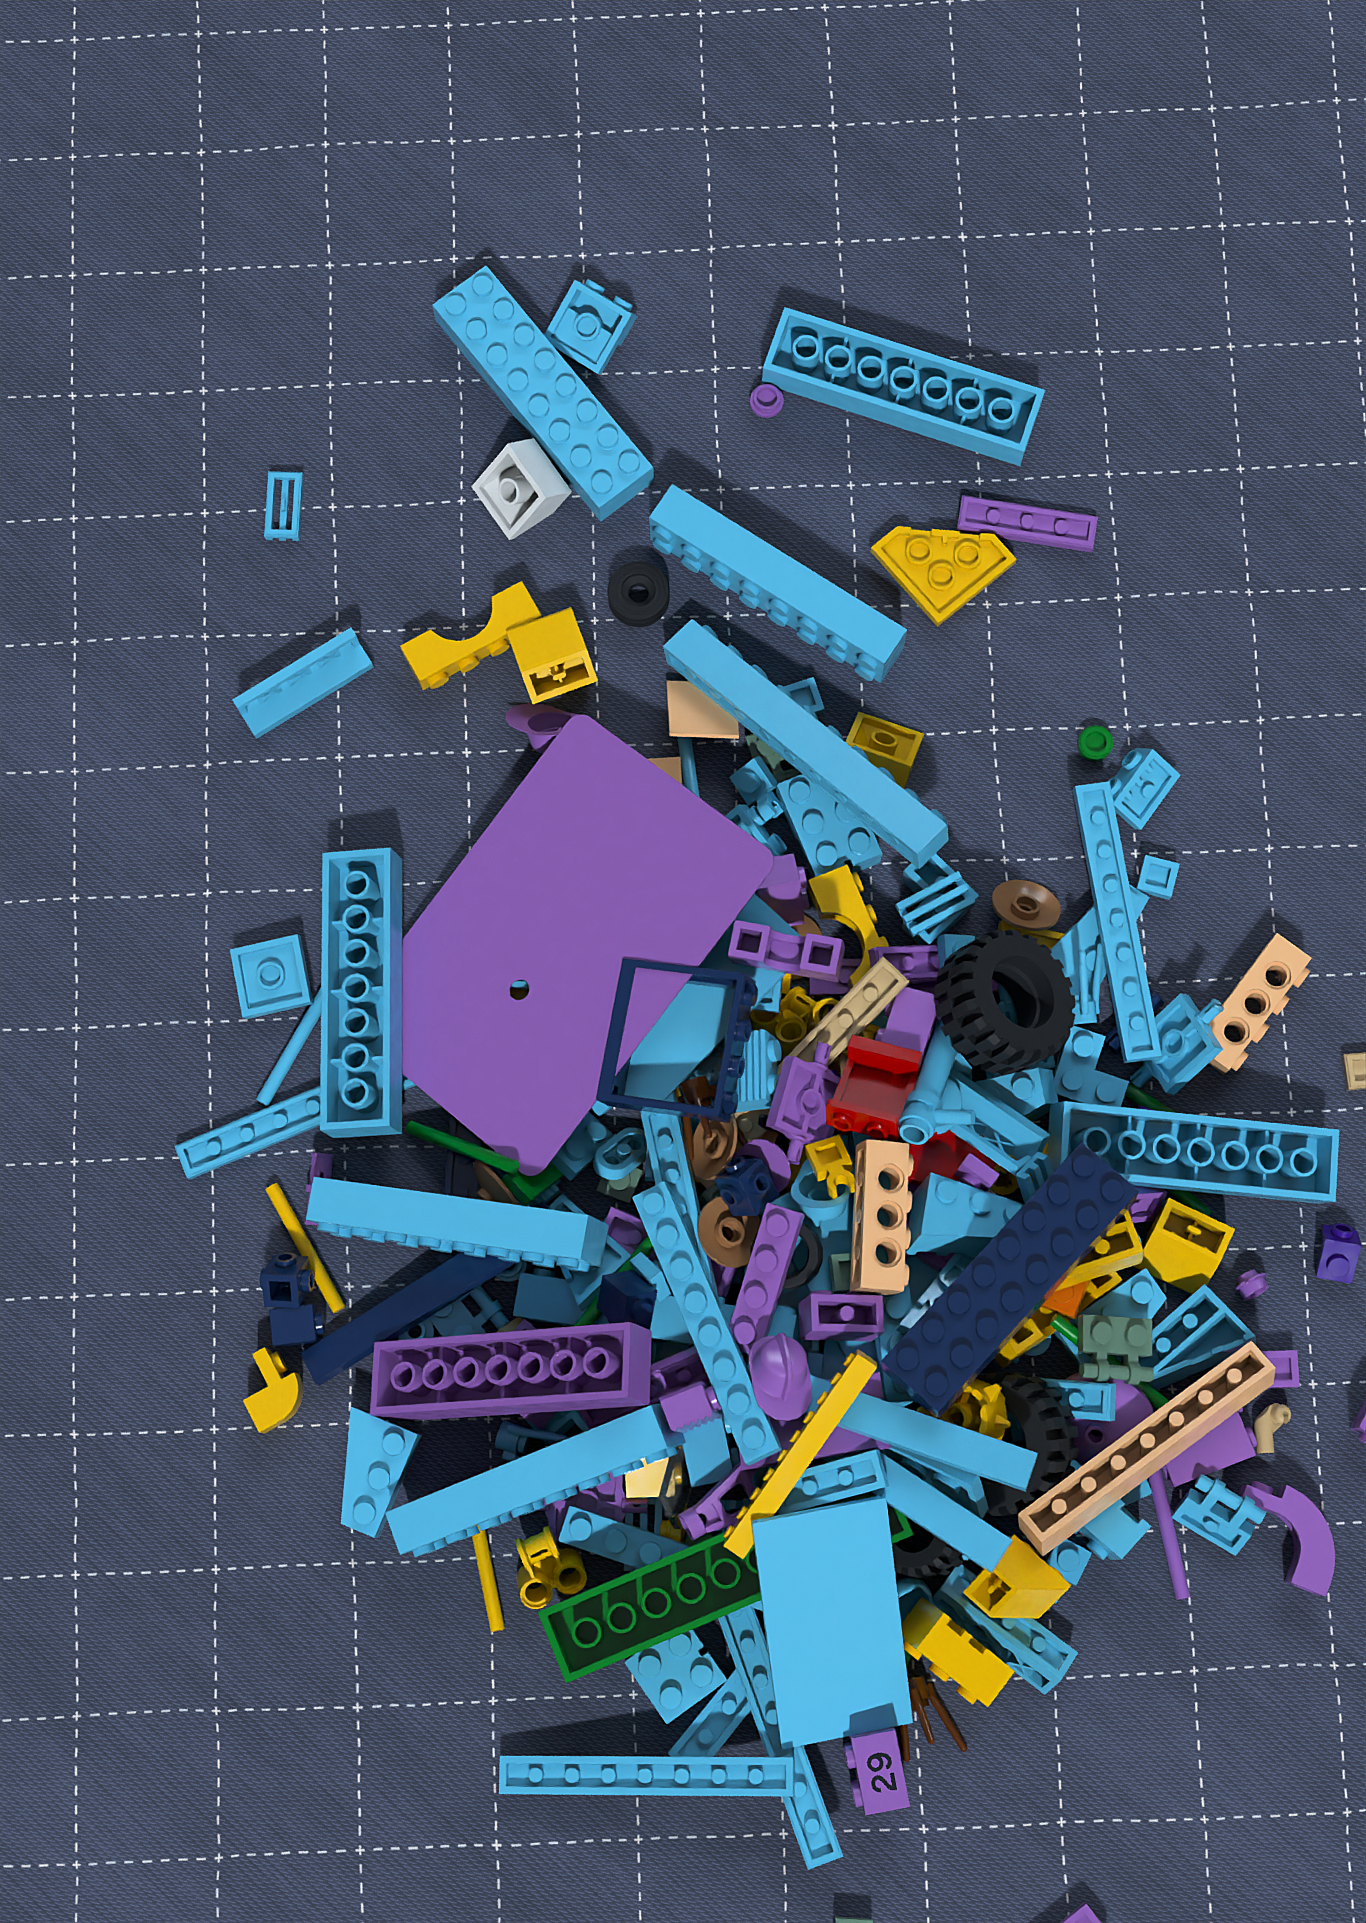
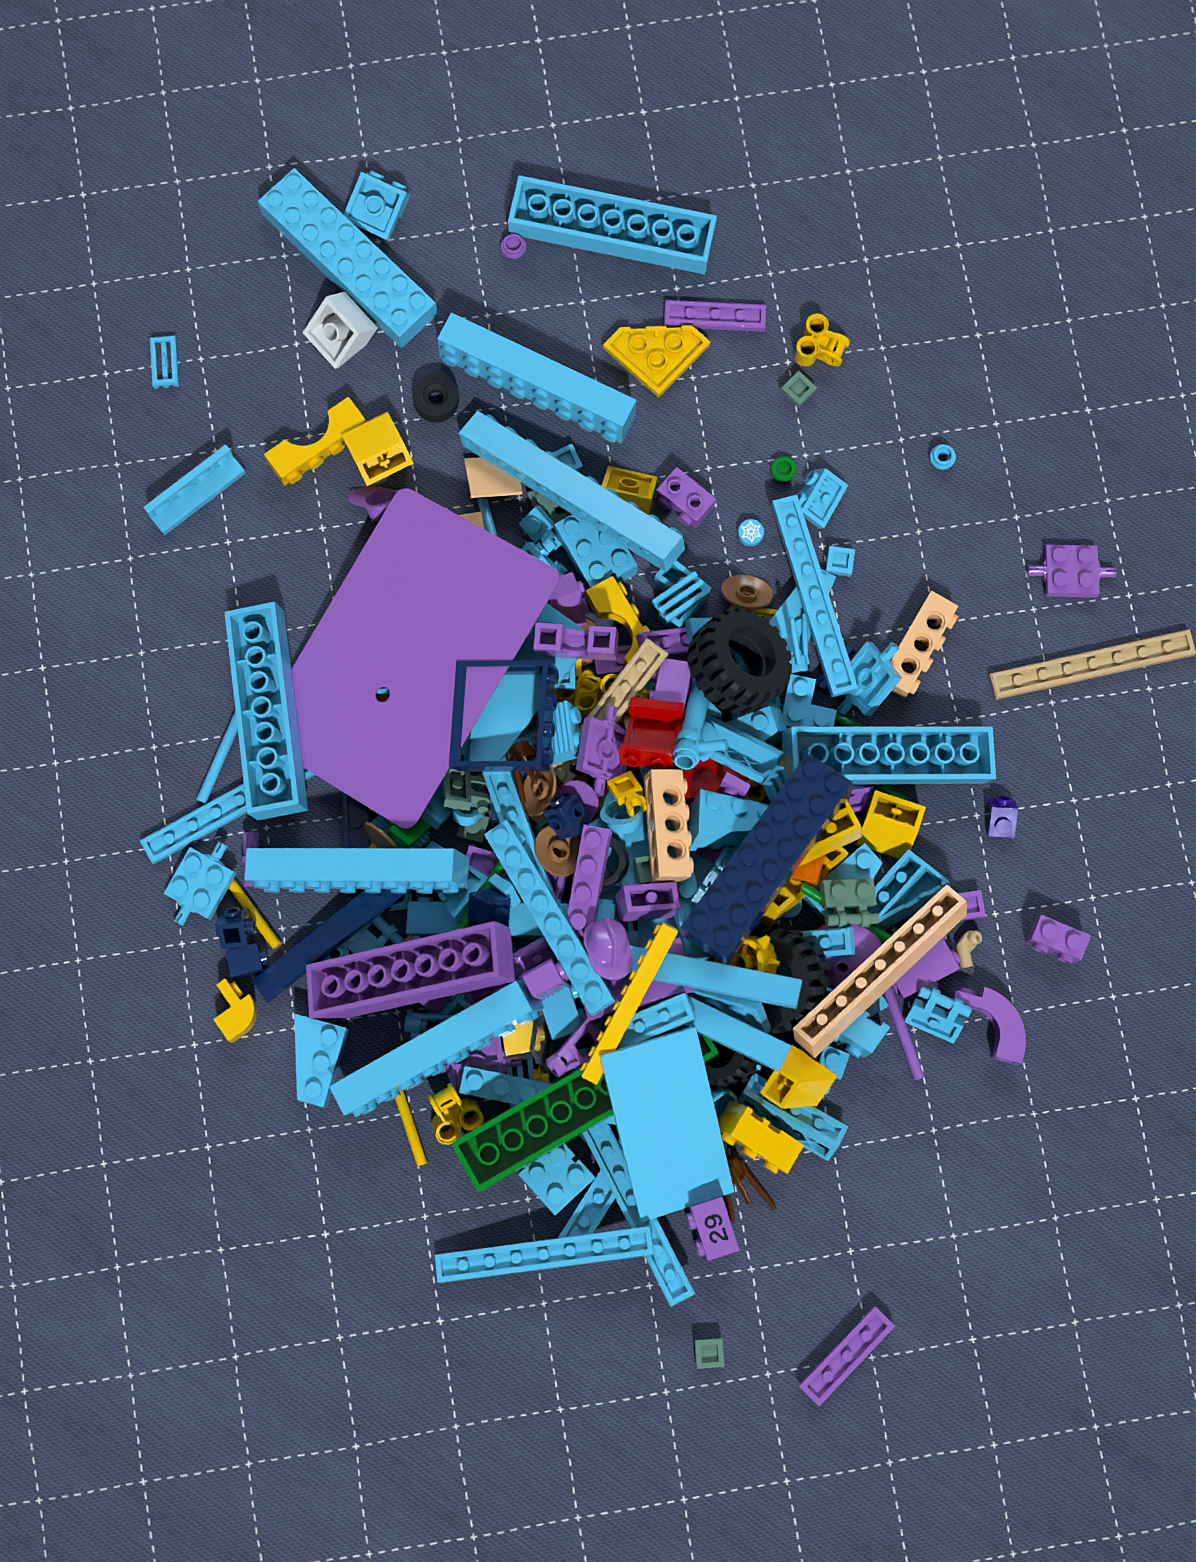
camera: 15 degrees left, 0 degrees up
(247, 1213) = (200, 883): none -> medium azure plate
(271, 976) = (197, 708): medium azure plate -> none
(462, 1147) = (353, 814): green bar -> none
(605, 1138) = (458, 792): none -> sand green plate
(957, 768) = (685, 498): none -> medium lavender brick
(1040, 824) = (750, 532): none -> medium azure tile
(1128, 636) = (798, 389): none -> sand green plate
(1165, 577) = (820, 343): none -> yellow piece
(1251, 1284) = (942, 847): medium lavender plate -> none
(1318, 741) = (942, 449): none -> medium azure plate

